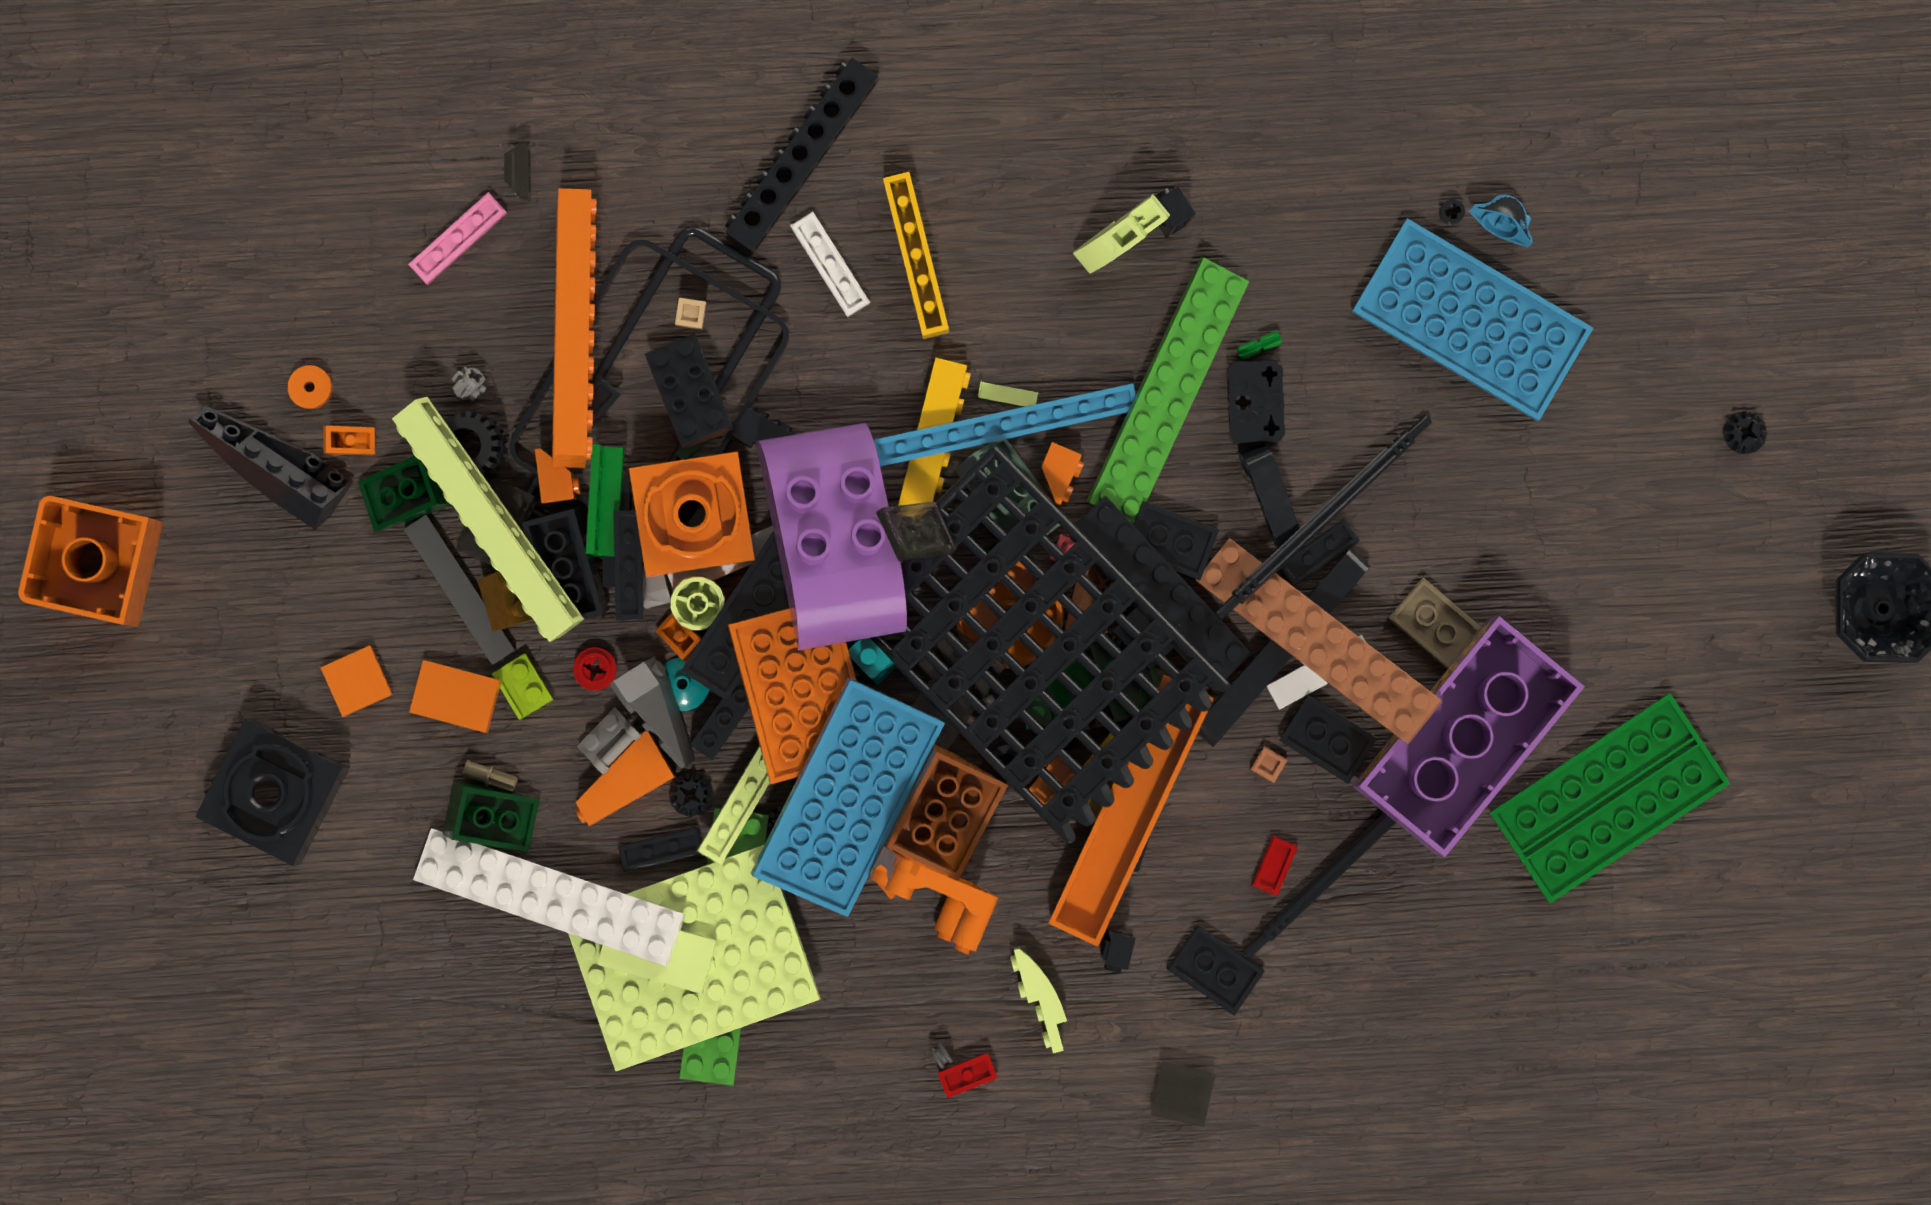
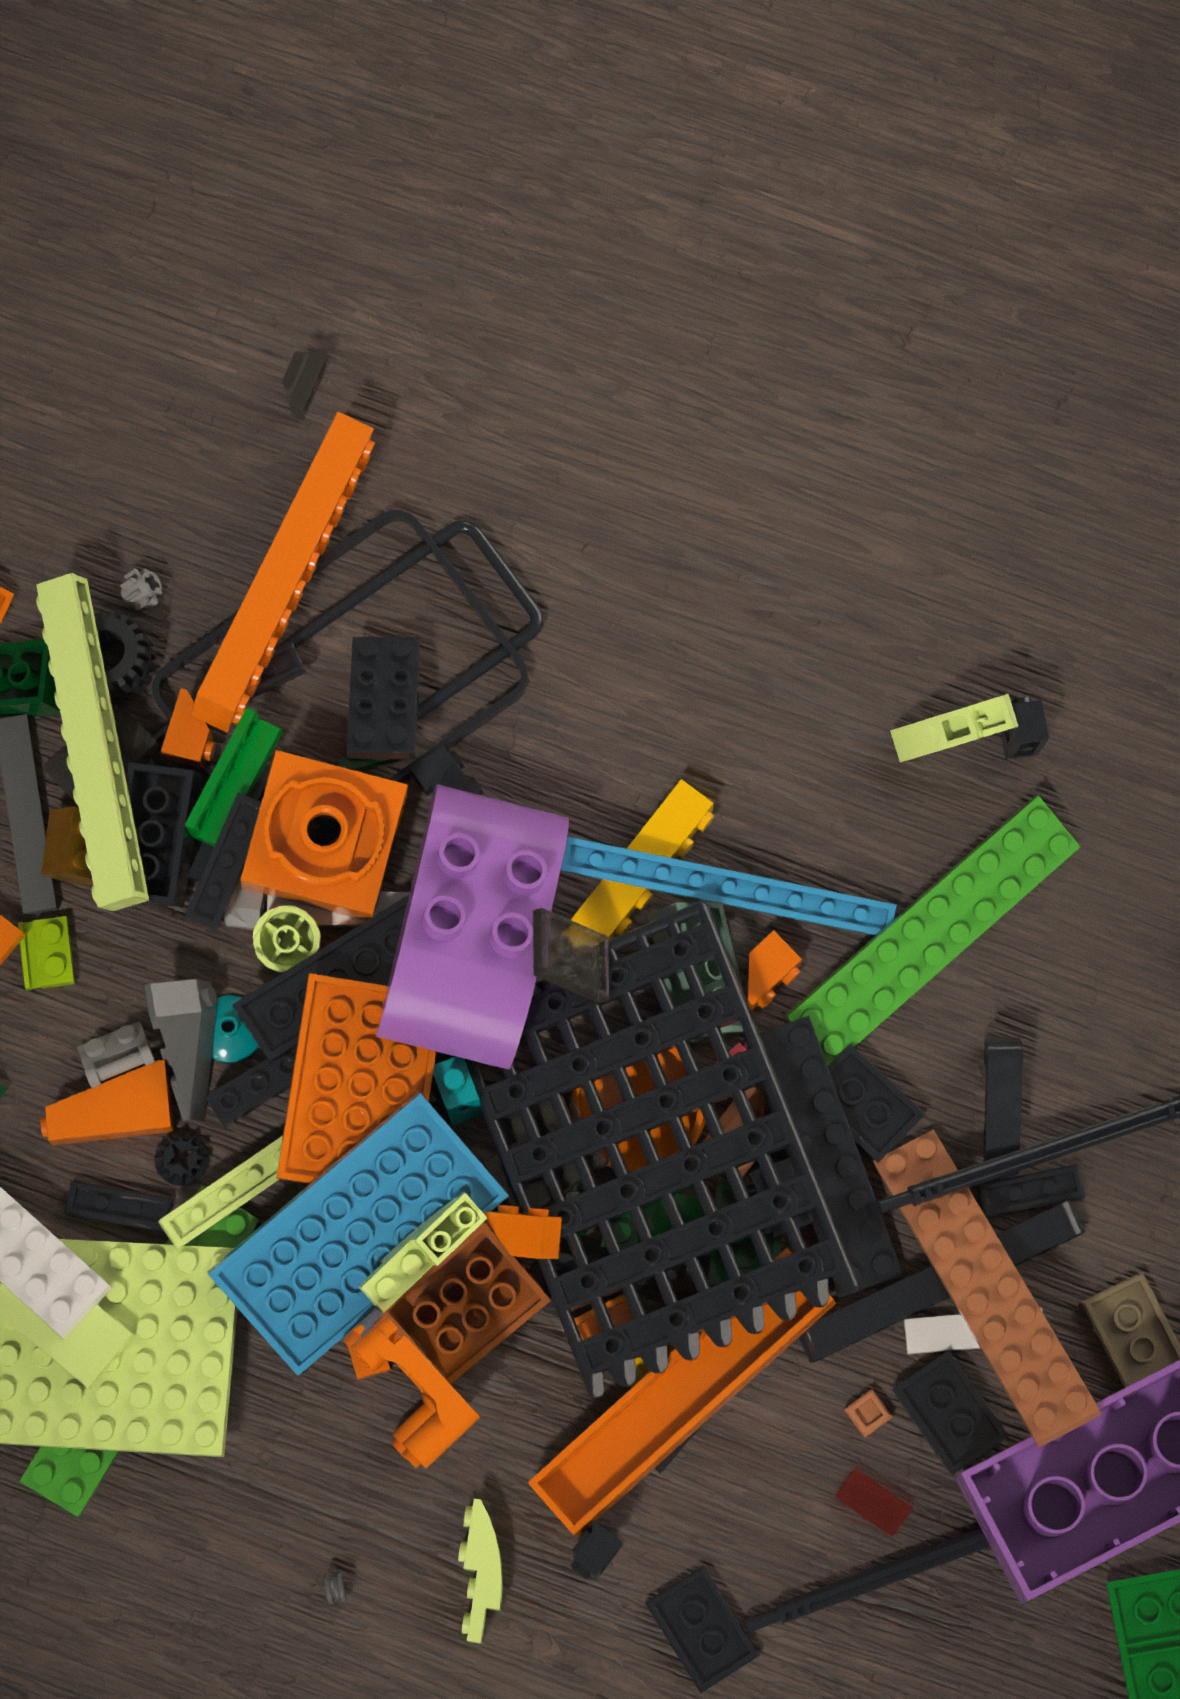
camera: 30 degrees right, 10 degrees down
(457, 238) = (202, 427): bright pink tile -> none
(583, 675) = (137, 952): red gear -> none
(678, 637) = (247, 969): orange slope -> none
(690, 313) = (424, 614): tan plate -> none
(752, 236) = (534, 561): black brick -> none
(830, 264) = (607, 629): white tile -> none
(899, 790) = (421, 1250): none -> yellowish green slope
(916, 255) = (709, 657): yellow brick -> none
(967, 1075) = (355, 1625): red plate -> none
(969, 746) = (526, 1234): none -> orange slope
(1007, 394) = (744, 857): yellowish green piece -> none
(1254, 347) = (1054, 924): green piece -> none
(1264, 399) = (1032, 960): black axle -> none
(1274, 865) = (824, 1536): red tile -> none
(1299, 826) = (873, 1502): none -> clear red tile

